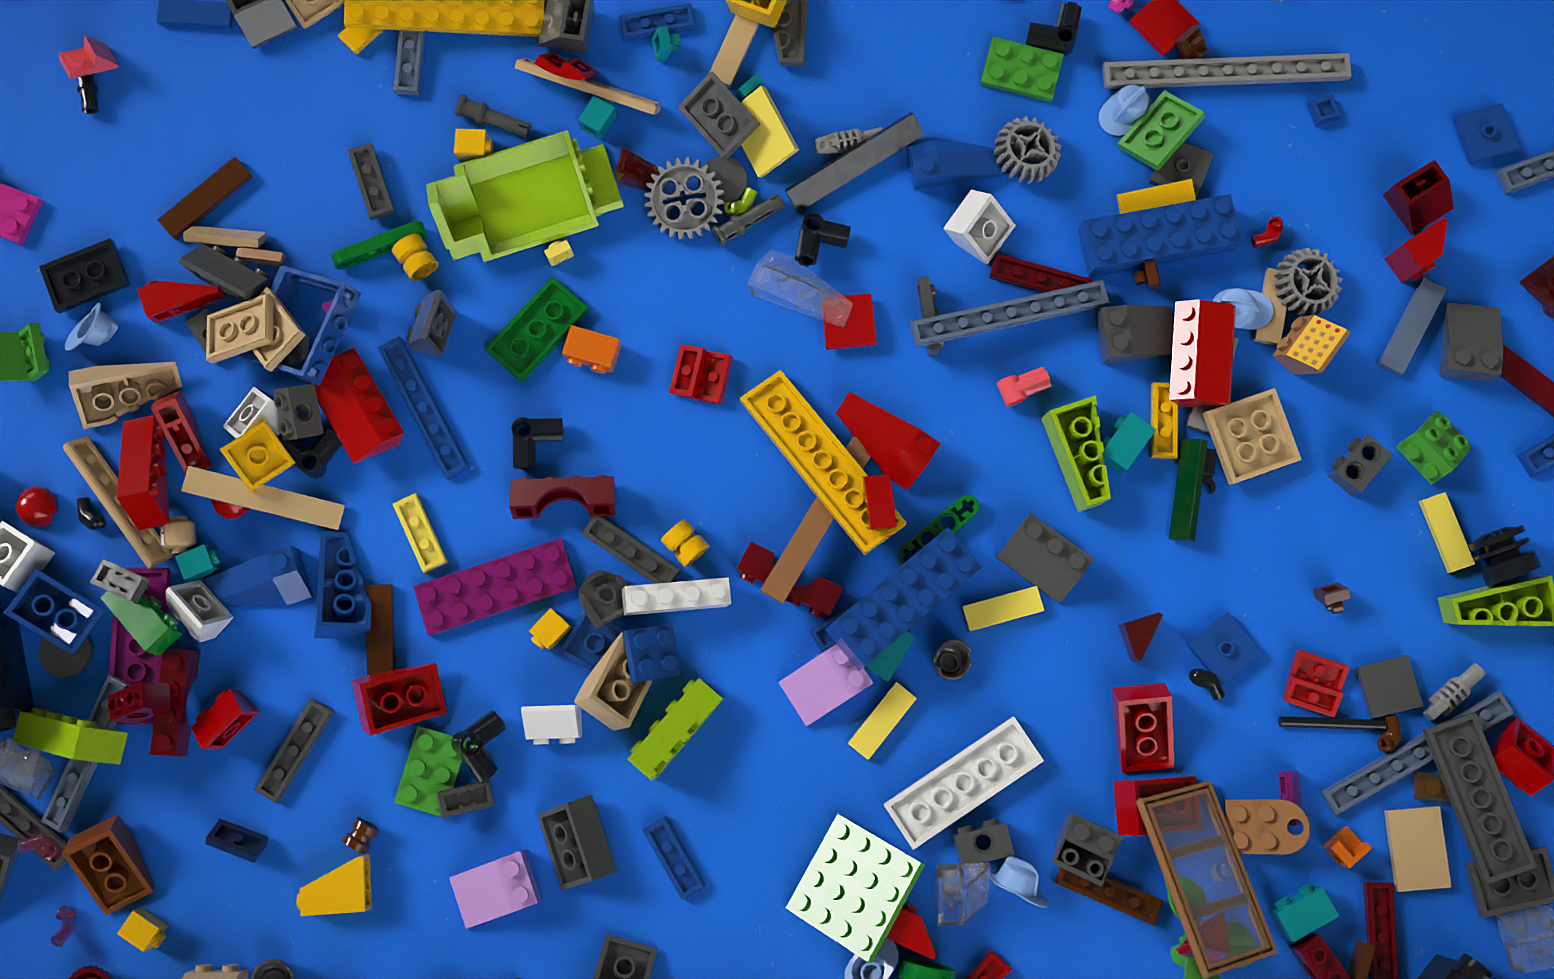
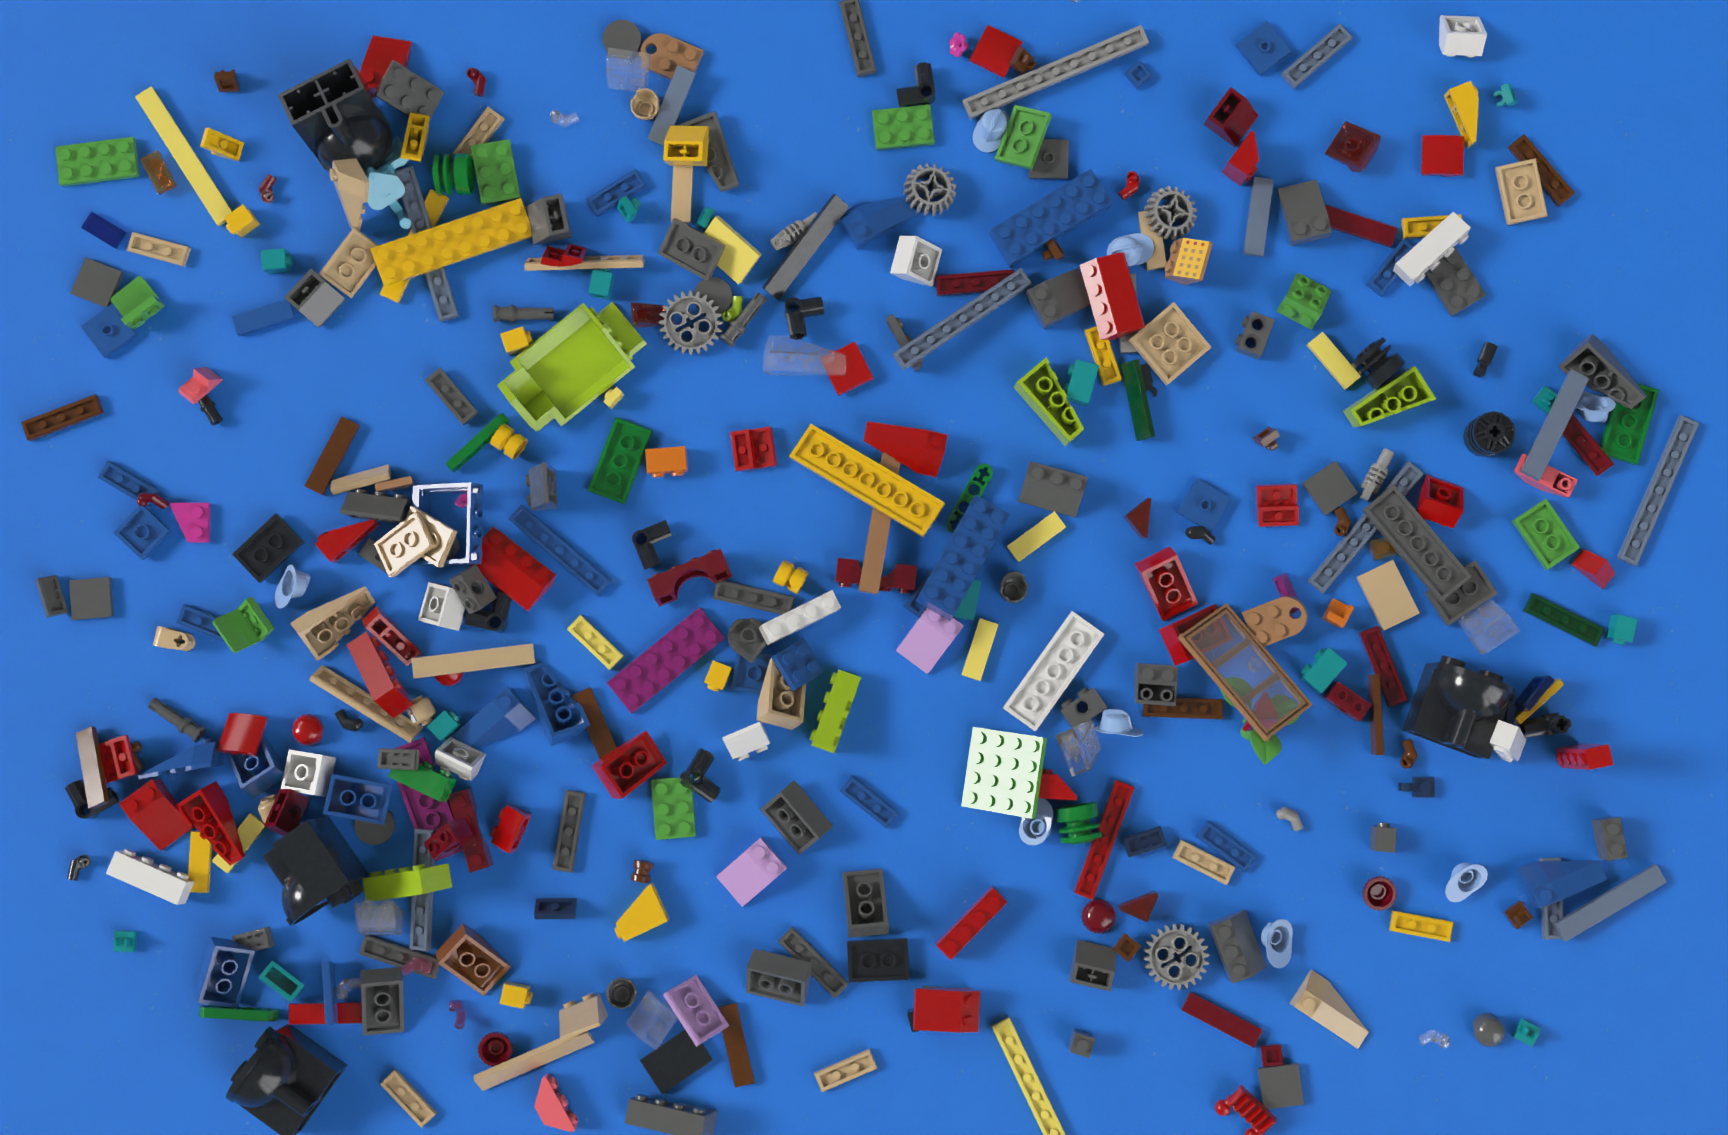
camera: 20 degrees left, 5 degrees up
(257, 456) = (457, 632): yellow plate -> none
(465, 799) = (705, 817): dark grey plate -> none
(879, 501) = (919, 495): red slope -> none
(1017, 388) = (988, 371): coral piece -> none
(1156, 196) = (1038, 190): yellow tile -> none
(1331, 723) = (1298, 529): black bar -> none

